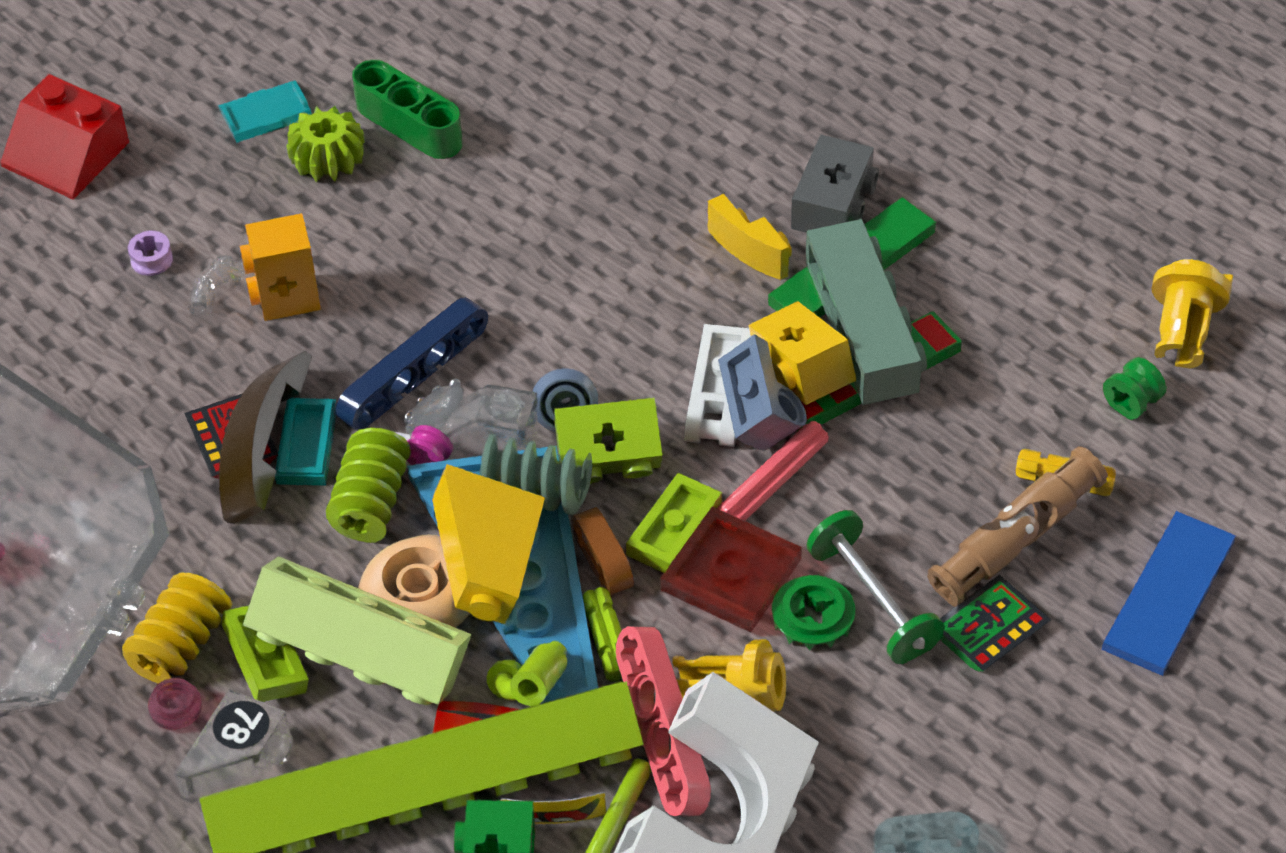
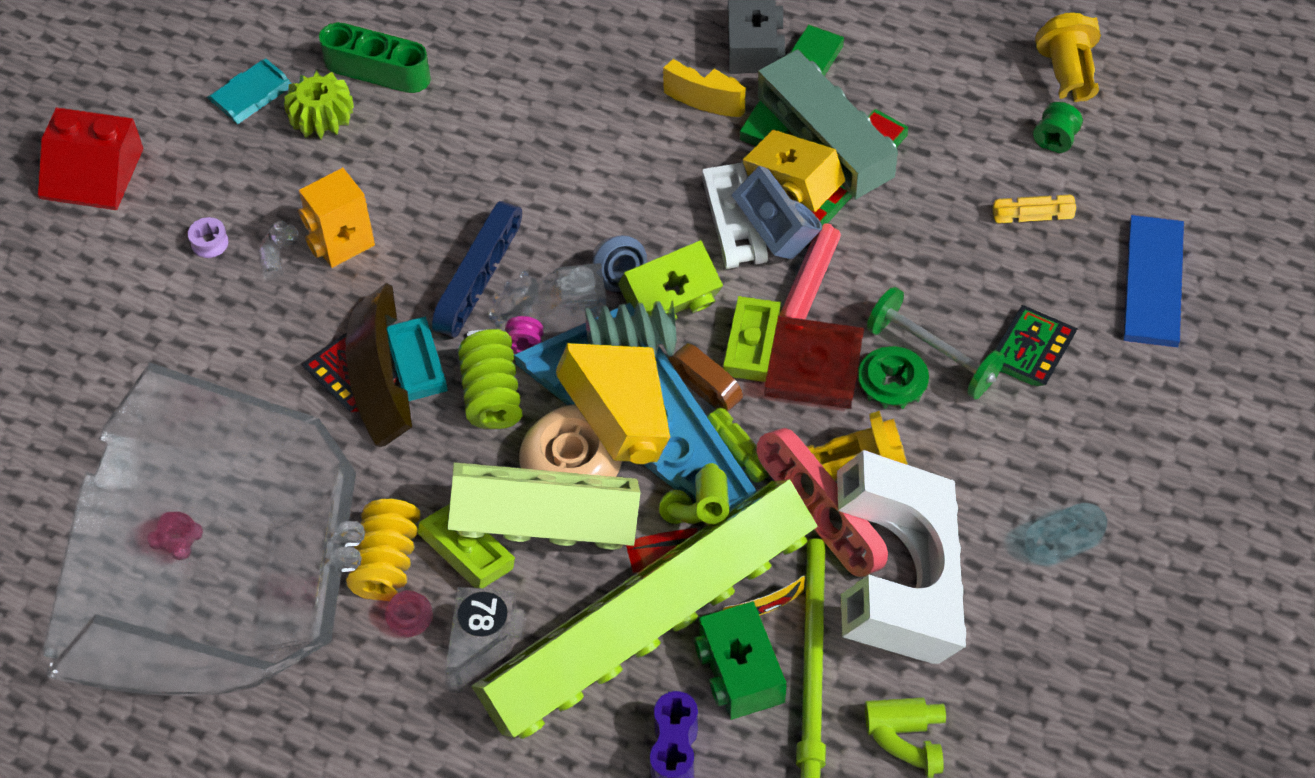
camera: 20 degrees left, 5 degrees up
(1001, 540) = (1023, 262): medium nougat piece -> none

